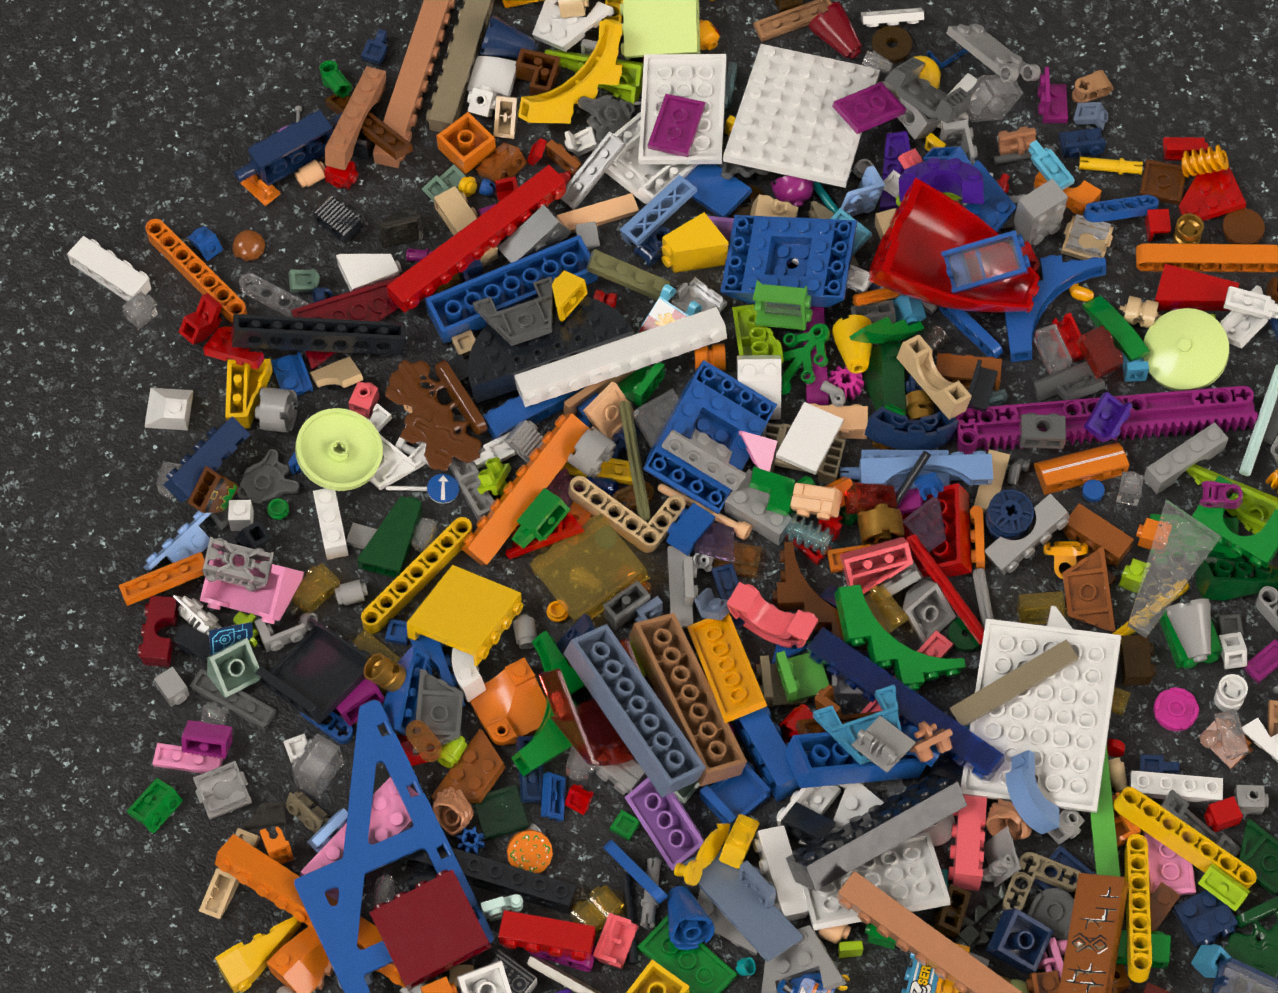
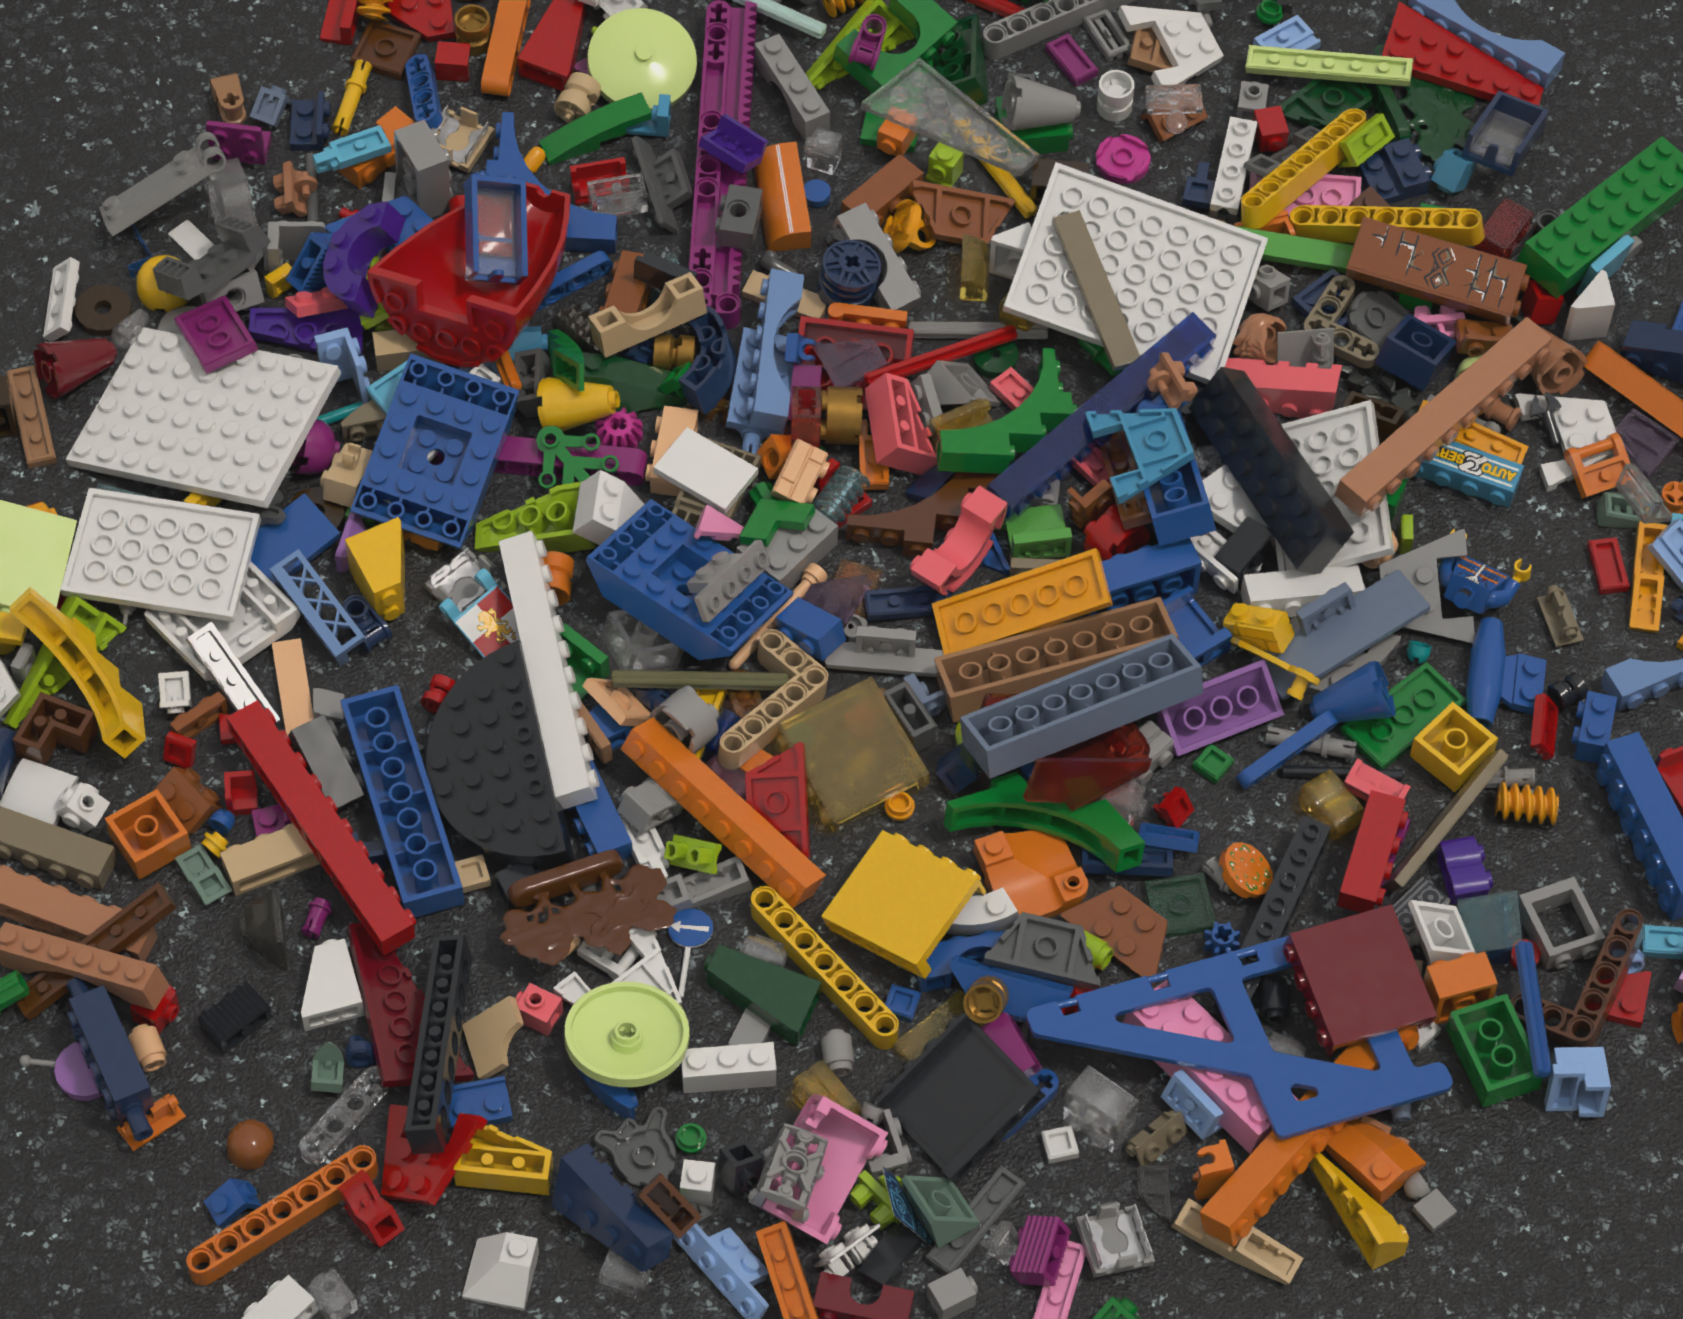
camera: 85 degrees left, 5 degrees down
(276, 409) = (541, 1117): light grey brick -> none
(423, 740) = (1089, 964): clear orange plate -> none
(452, 810) = (1180, 946): nougat hair -> none
(494, 908) = (1323, 900): light aqua plate -> none
(506, 117) = (114, 781): tan slope -> none
(523, 320) = (475, 776): dark grey wing -> none
(524, 631) = (934, 840): light grey brick -> none
(540, 518) = (775, 794): green hinge -> none
(568, 293) = (442, 716): yellow slope -> none
(582, 626) = (946, 775): dark blue plate -> none
(606, 114) = (142, 653): dark grey tile -> none
(626, 274) = (411, 655): olive plate -> none
(676, 125) = (191, 560): magenta tile -> none
(711, 607) = (926, 617): sand blue bracket -> none
(782, 306) = (506, 471): bright green window -> none
(836, 394) = (640, 436): light grey arm -> none
(883, 744) = (1176, 423): light grey hinge -> none
(892, 184) = (331, 323): white tile -> none
(912, 477) = (784, 357): black bar -> none
(1026, 796) = (1240, 300): medium blue arch -> none
(1100, 351) = (638, 140): clear red brick -> none
(1234, 650) = (1061, 78): white brick -> none

